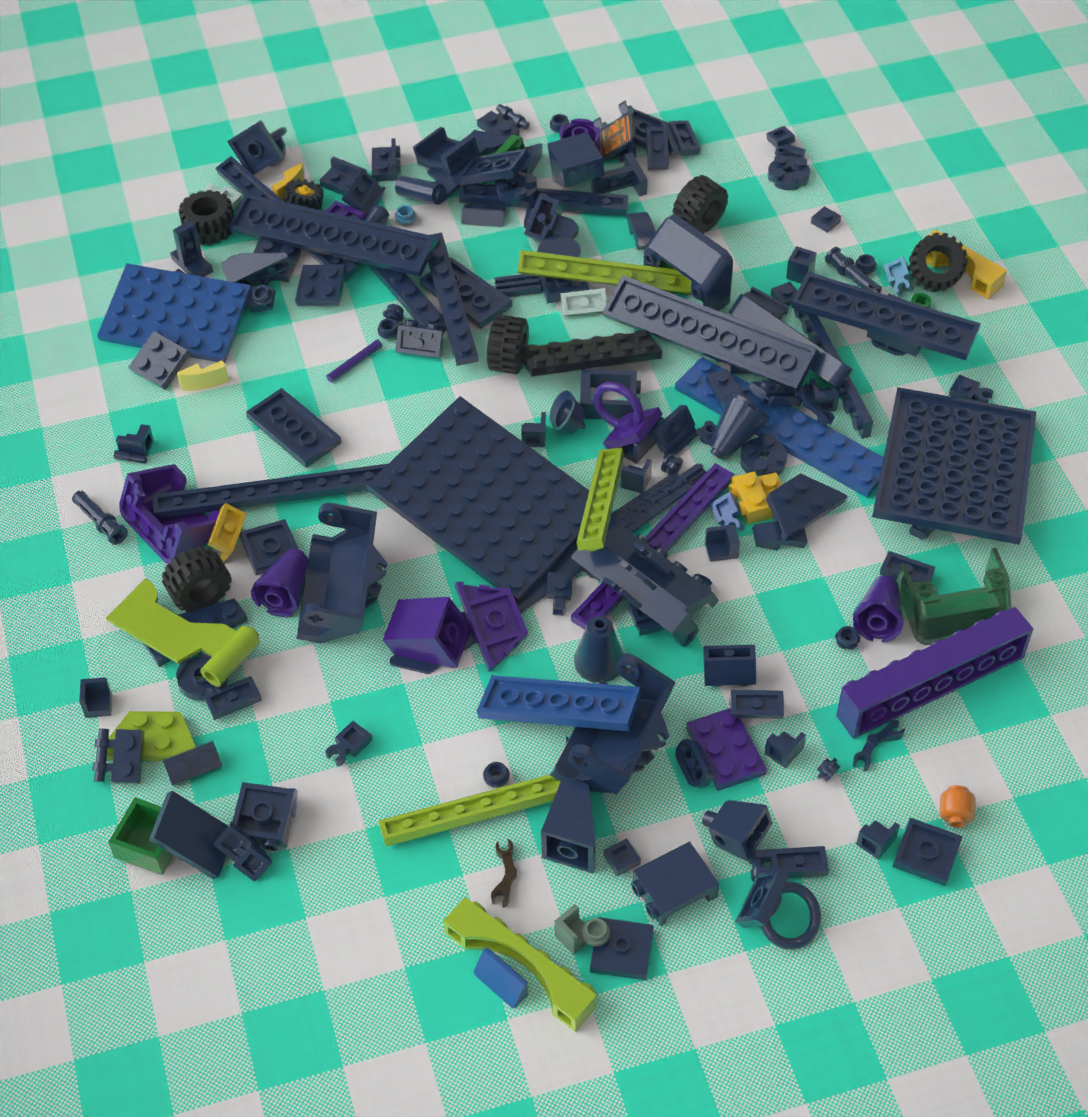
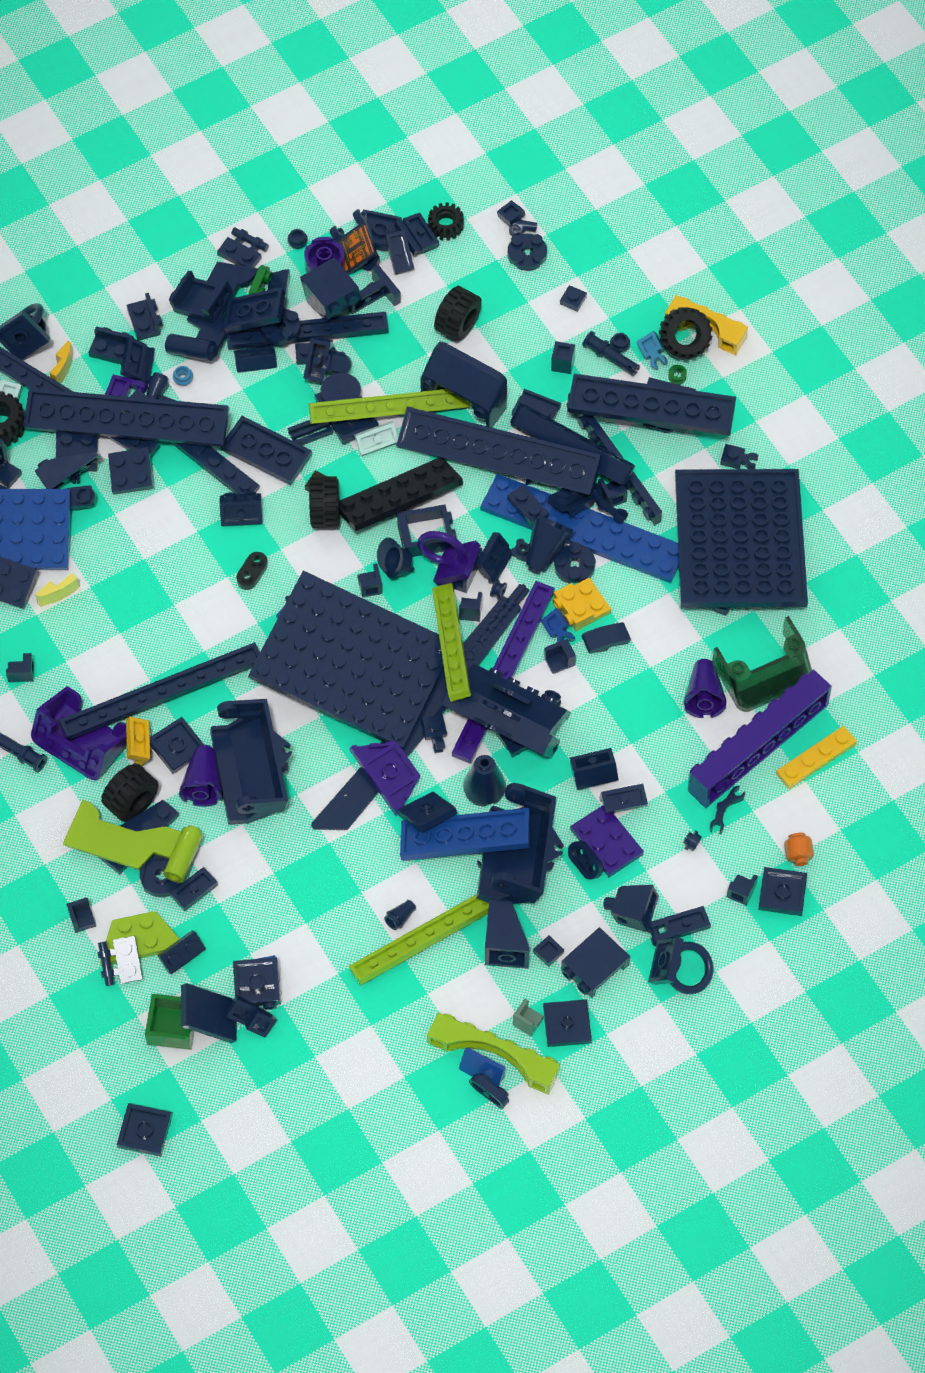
camera: 15 degrees left, 10 degrees up
(71, 956) = (144, 1129): none -> dark blue plate
(128, 456) = (18, 684): dark blue pin -> none
(293, 427) = (156, 624): dark blue plate -> none
(304, 194) = (81, 375): black wheel -> none
(349, 740) = (303, 903): dark blue plate -> none
(353, 361) = (186, 543): dark purple bar -> none
(388, 328) = (207, 499): dark blue plate -> none
(394, 312) = (207, 487): dark blue plate -> none
(415, 396) = (253, 569): none -> black plate
(428, 631) = (337, 794): dark purple slope -> none
(451, 304) = (258, 466): dark blue plate -> none
(456, 777) = (399, 915): none -> dark blue cone
(493, 769) = (430, 899): dark blue plate -> none
(495, 999) = (483, 1085): none -> dark blue plate
(504, 886) = (464, 984): dark brown piece -> none
(523, 670) = (427, 811): none -> dark blue plate
(595, 932) = (545, 1016): sand green plate -> none
(641, 227) = (409, 346): dark blue slope -> none
(713, 125) = (446, 211): none -> black tyre
(784, 293) = (555, 389): dark blue plate -> none
(784, 747) = (653, 829): dark blue panel -> none
(802, 503) = (618, 604): dark blue wing -> none
(850, 633) = (682, 716): dark blue plate -> none
(917, 570) = (728, 647): dark blue plate -> none
(999, 710) = (816, 757): none -> yellow plate

